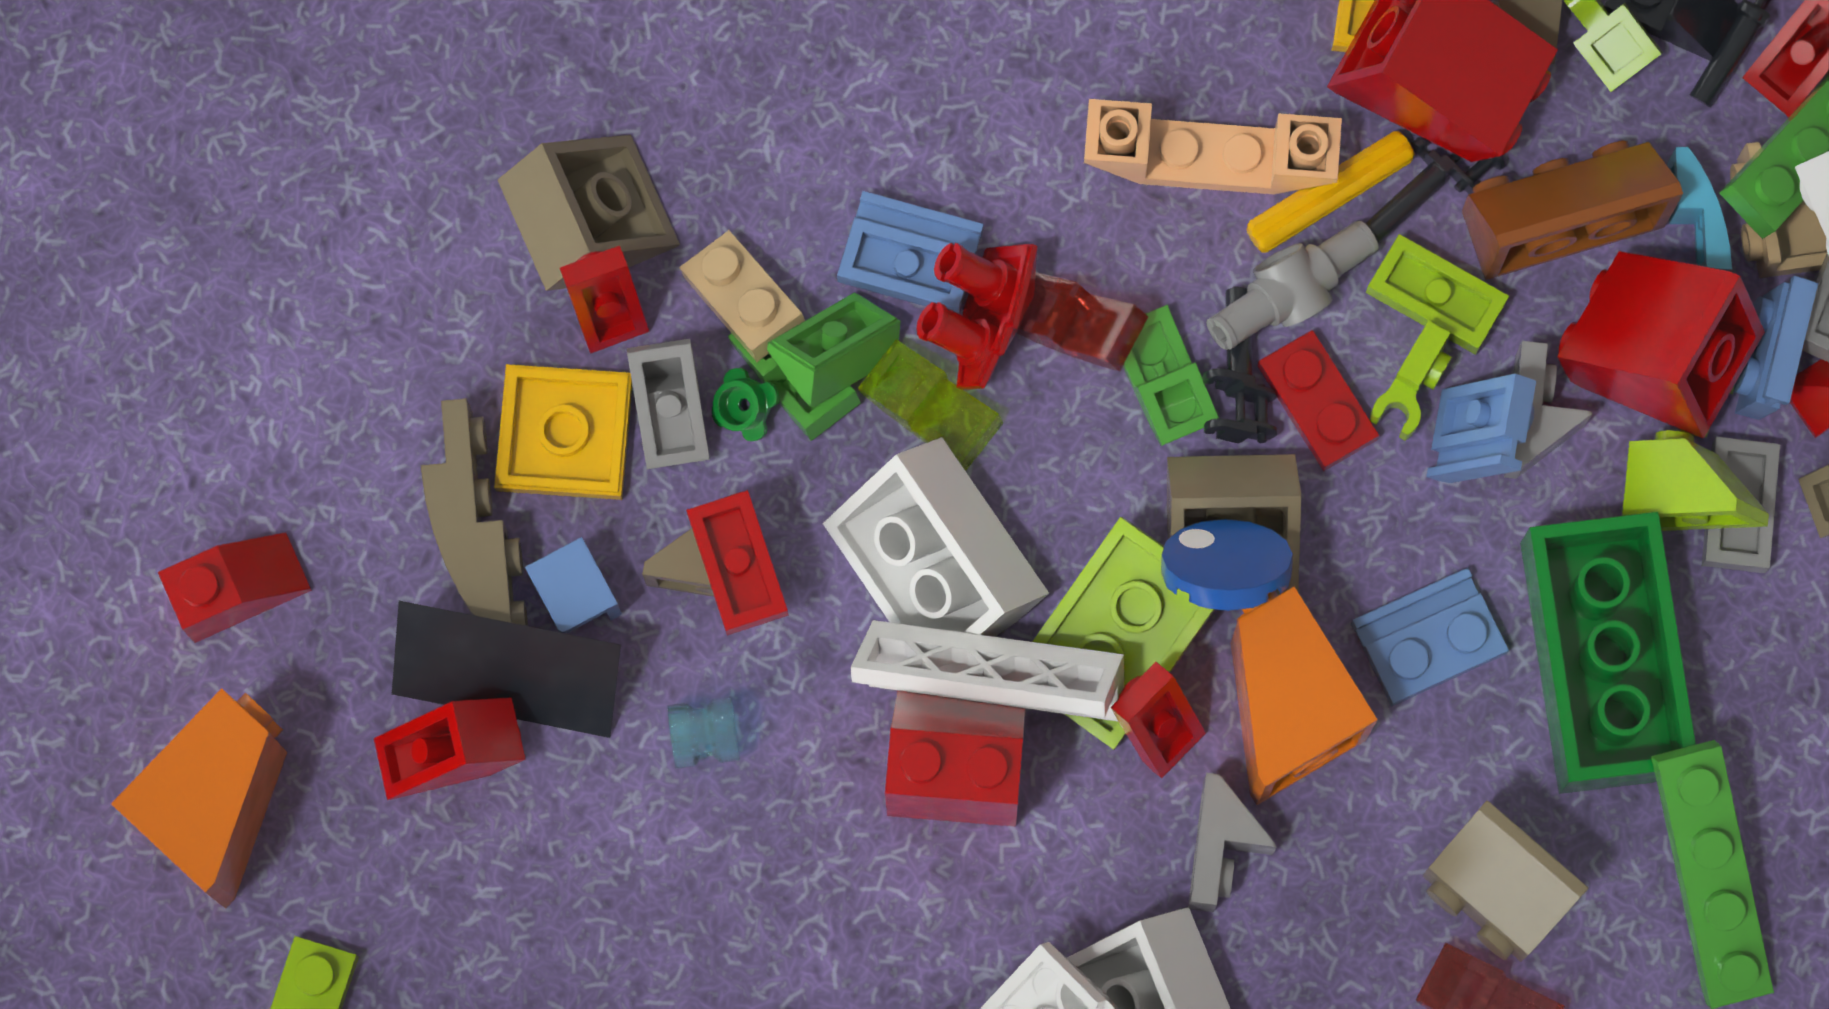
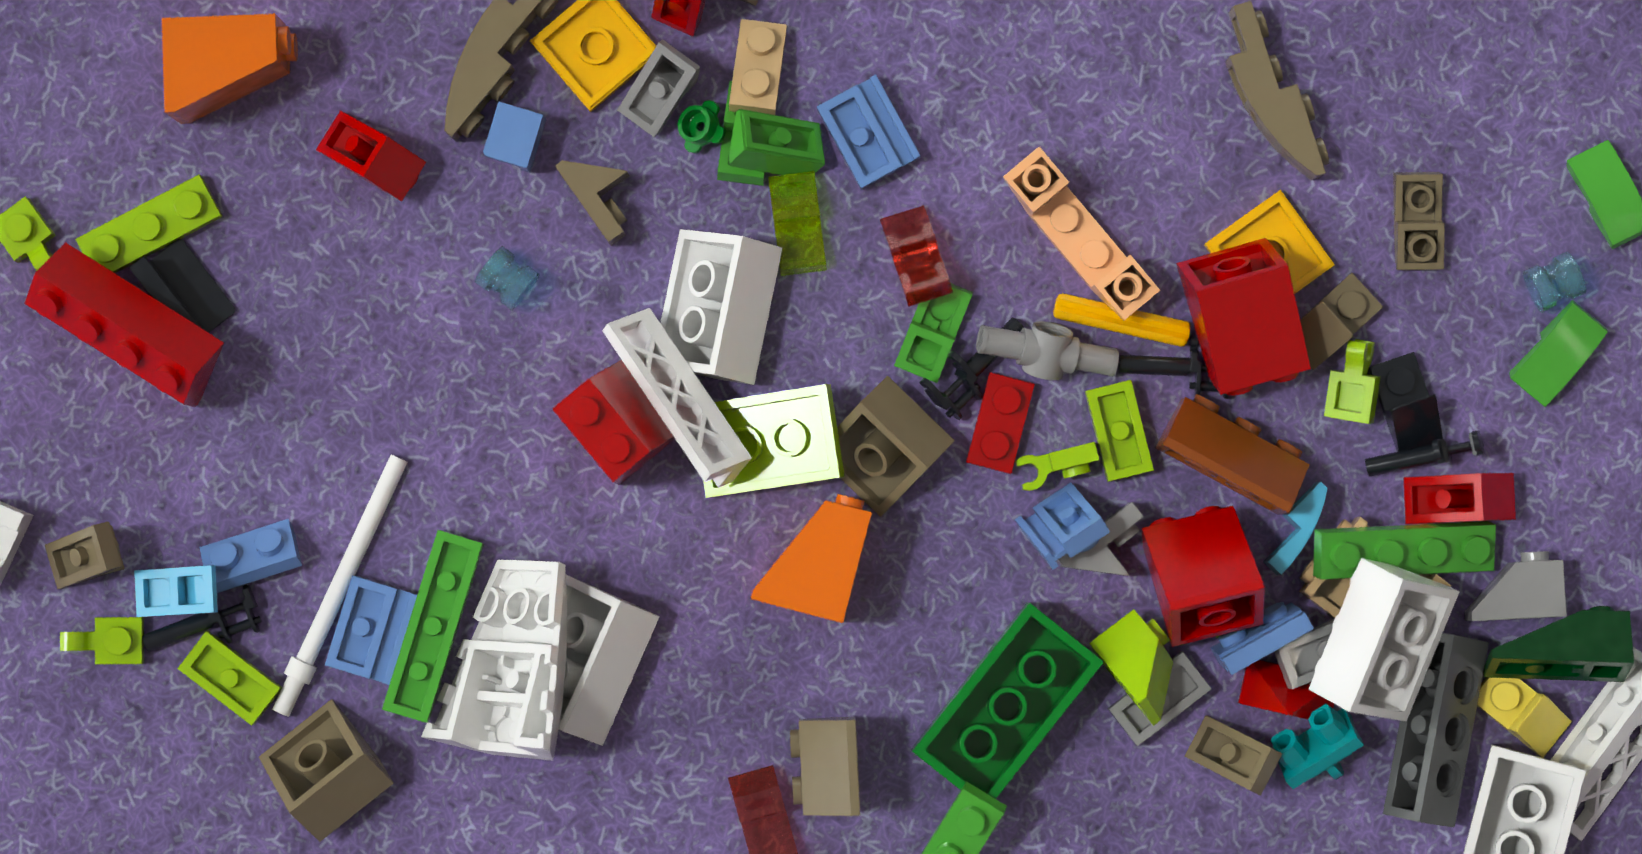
camera: 45 degrees right, 10 degrees up
(547, 673) = (436, 137): black sticker -> none
(737, 562) = (605, 210): red plate -> none
(998, 298) = (887, 203): red connector -> none
(1157, 719) = (739, 506): red plate -> none
(1221, 825) = (720, 591): light grey slope -> none
(1226, 564) = (850, 465): blue tile -> none
(1429, 637) = (929, 603): medium blue plate -> none

